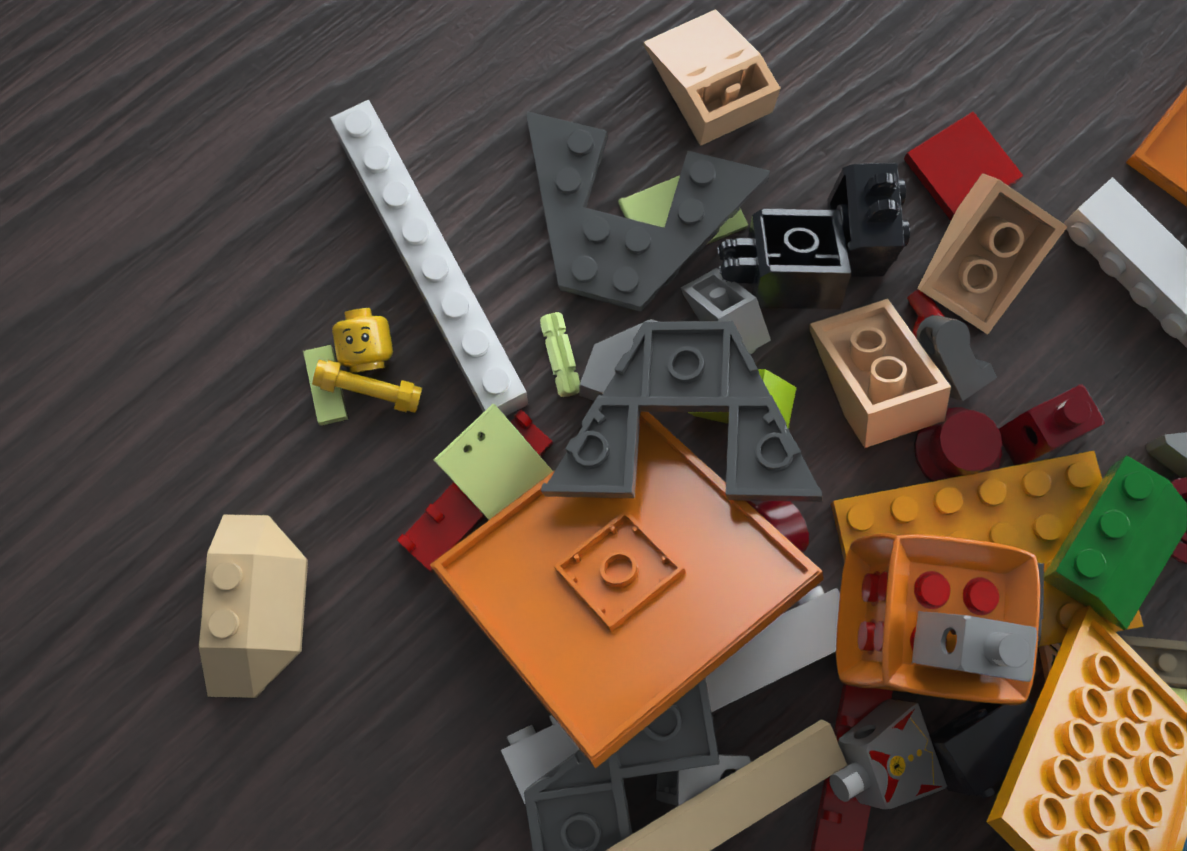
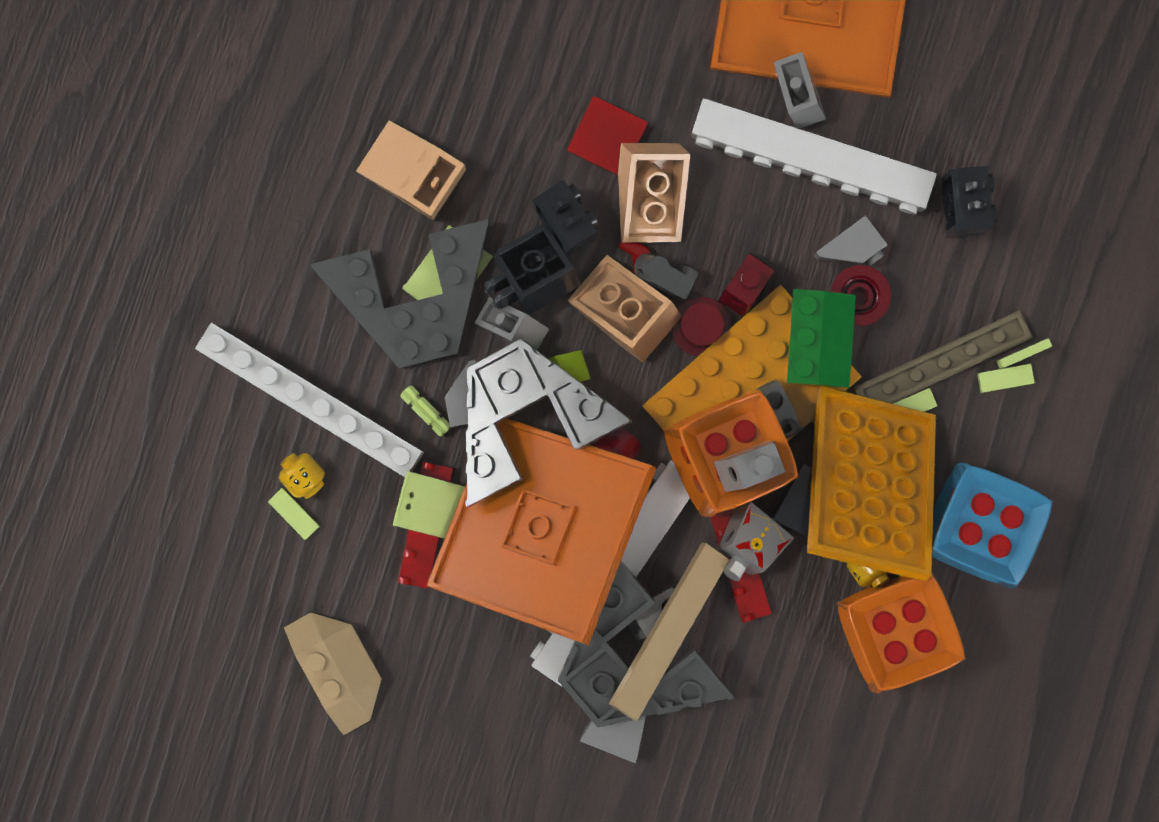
camera: 30 degrees left, 10 degrees up
(329, 376) = (295, 508): yellow bar -> none

